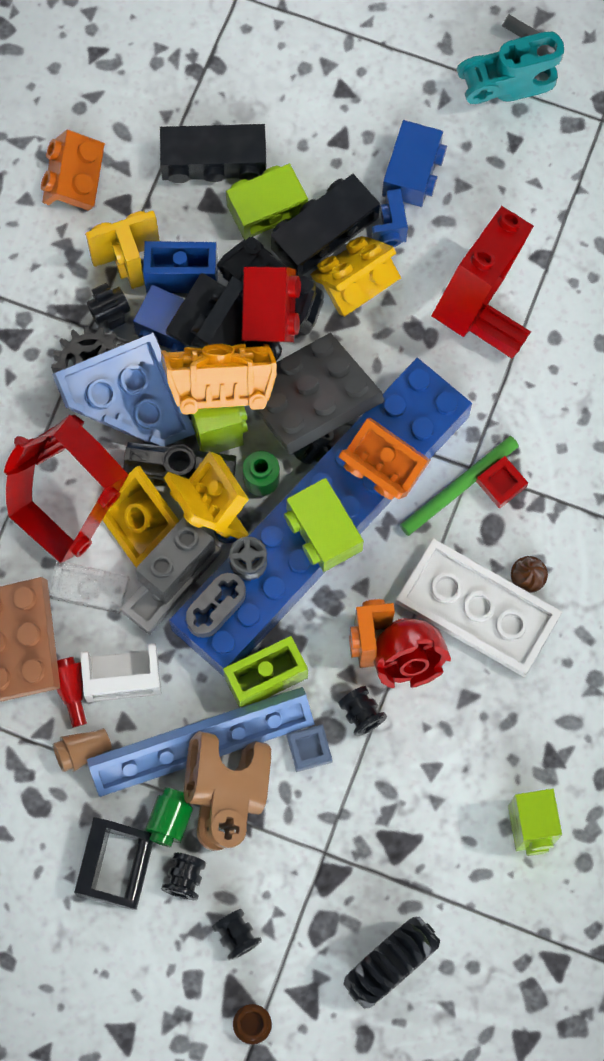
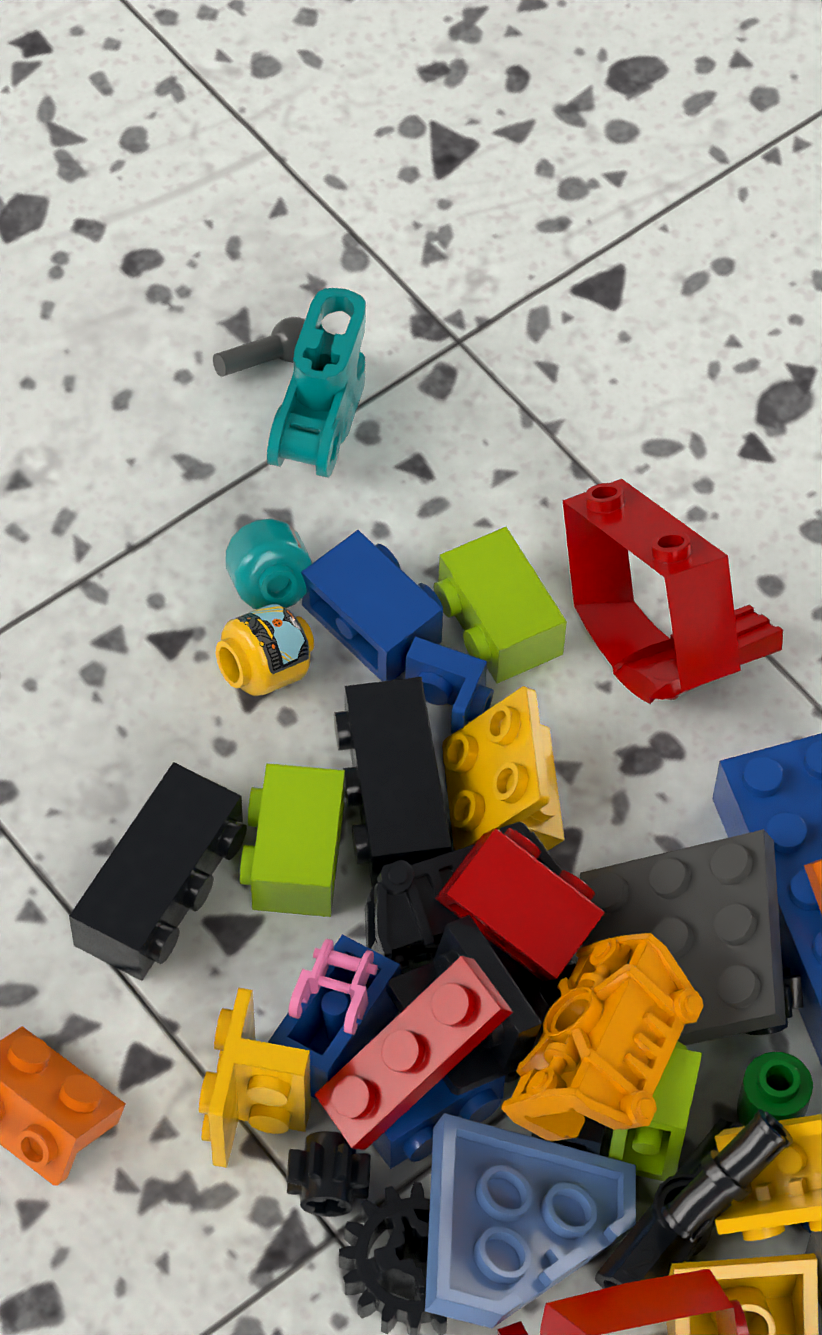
camera: 60 degrees left, 15 degrees down
(169, 301) = (413, 1053): none -> plate
(183, 242) = (311, 981): none -> bright pink piece
(189, 464) = (726, 1175): none -> black pin
(358, 130) = (264, 650): none -> head
(402, 102) = (266, 559): none -> teal head
(451, 219) = (500, 605): none -> lime brick

